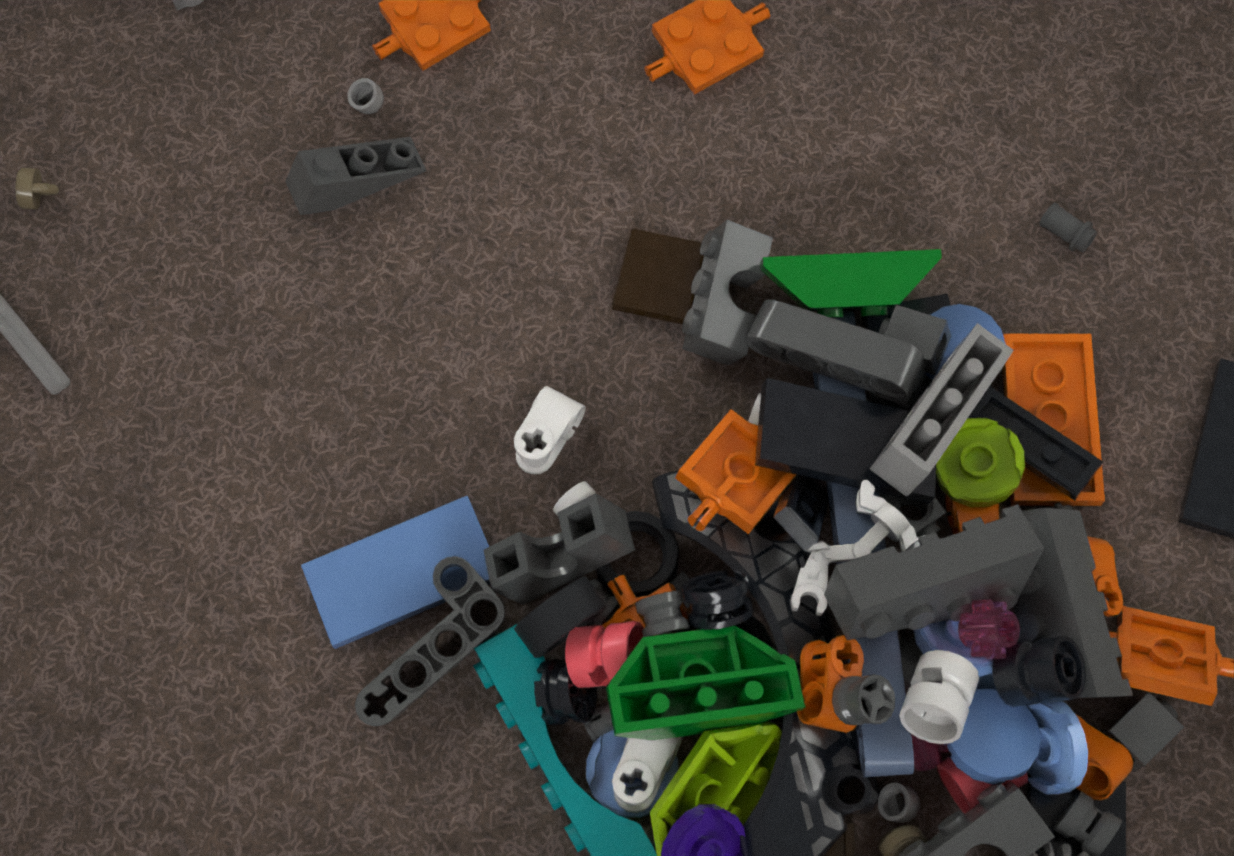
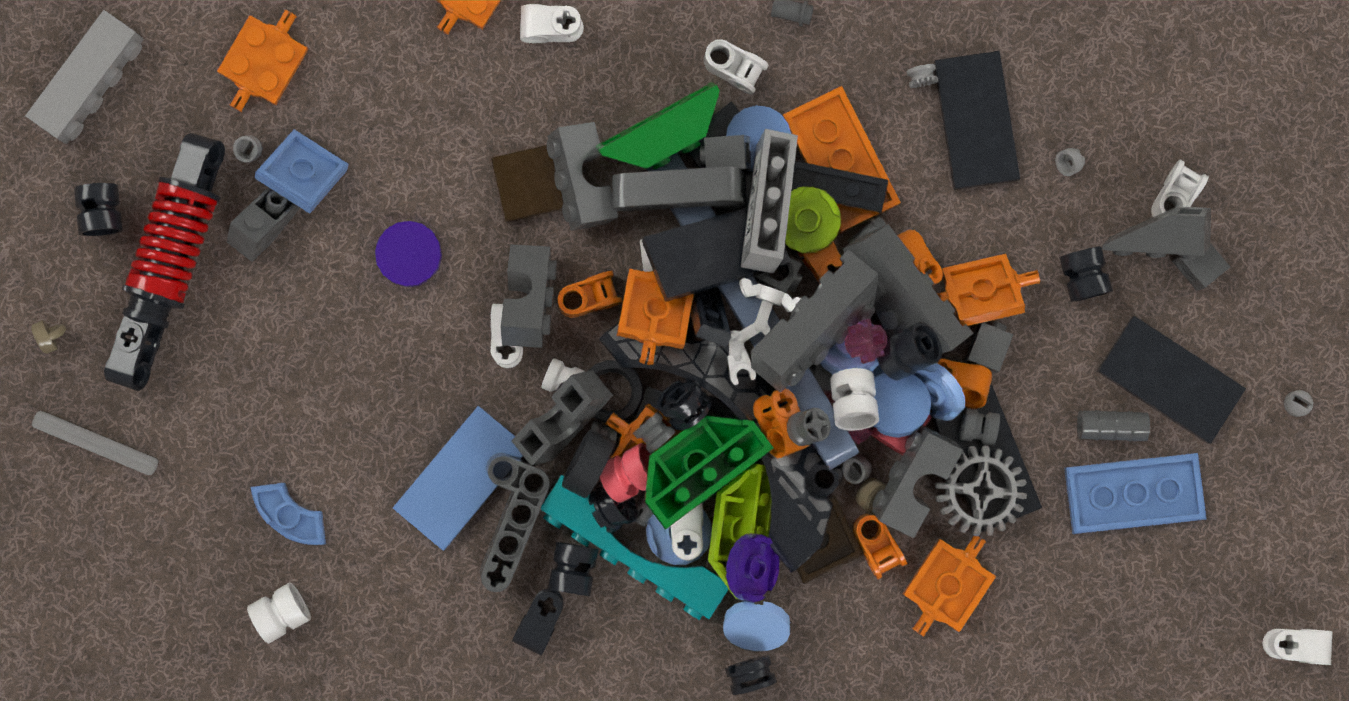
camera: 30 degrees left, 15 degrees up
(88, 620) = (275, 614): none -> white wheel
(167, 83) = (98, 209): none -> black wheel
(175, 517) = (287, 516): none -> medium blue tile
(247, 126) = (161, 263): none -> piece
(394, 796) = (537, 625): none -> black piece
(410, 144) = (301, 171): none -> medium blue tile
(475, 763) = (573, 568): none -> black wheel
(480, 289) = (408, 253): none -> dark purple tile
(580, 407) = (525, 319): none -> dark grey arch
(668, 432) = (591, 295): none -> orange piece
(773, 115) = (545, 24): none -> white piece
(974, 261) = (736, 66): none -> white piece
(1197, 367) = (921, 75): none -> light grey bush

